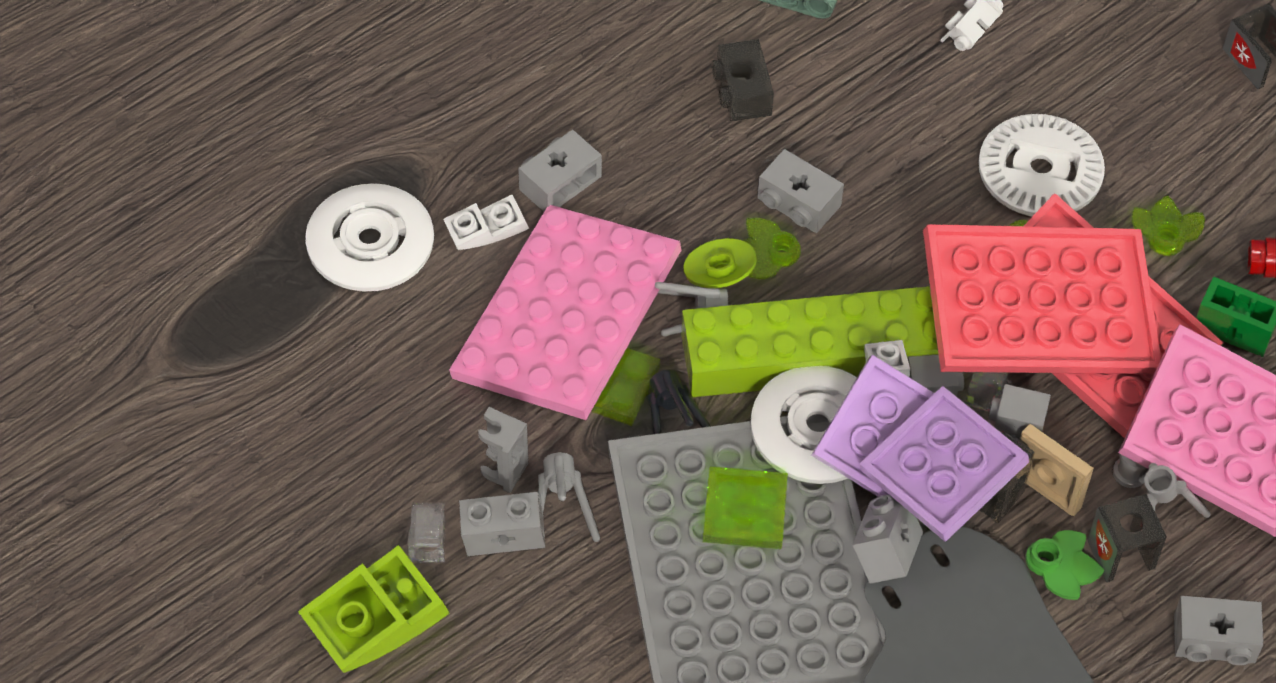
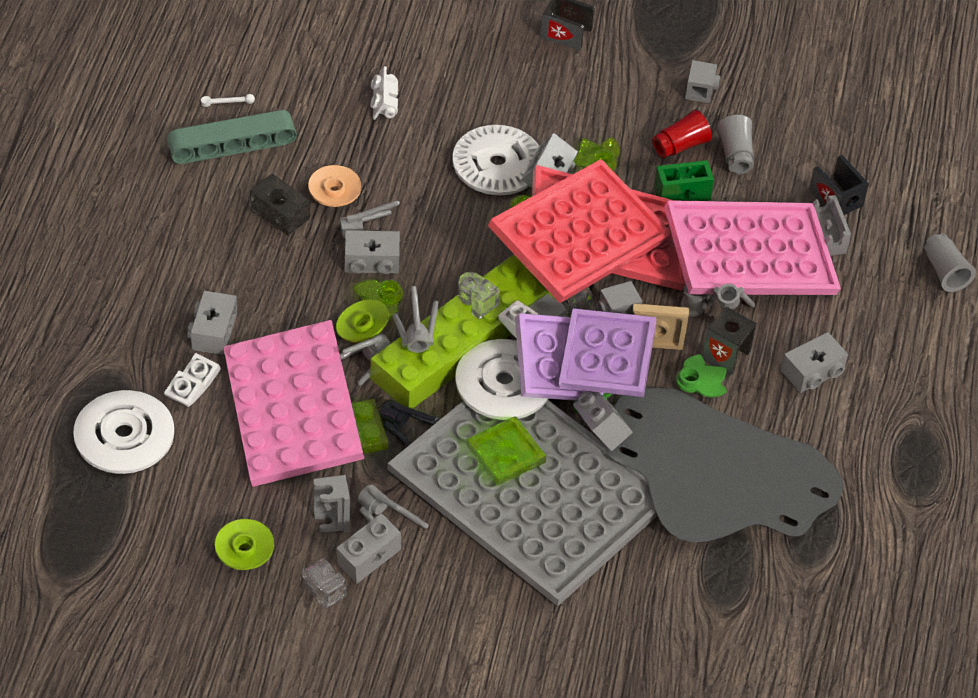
camera: 40 degrees left, 5 degrees down
(373, 610) = (333, 647): lime slope -> none
(377, 423) = (241, 535): none -> lime dish
(746, 312) = (417, 336): none -> light grey plant
(809, 148) = (355, 221): none -> light grey plant
(823, 82) = (334, 185): none -> light nougat dish
(857, 305) = (478, 292): none -> clear leg
(1108, 195) = (553, 154): none -> light grey brick

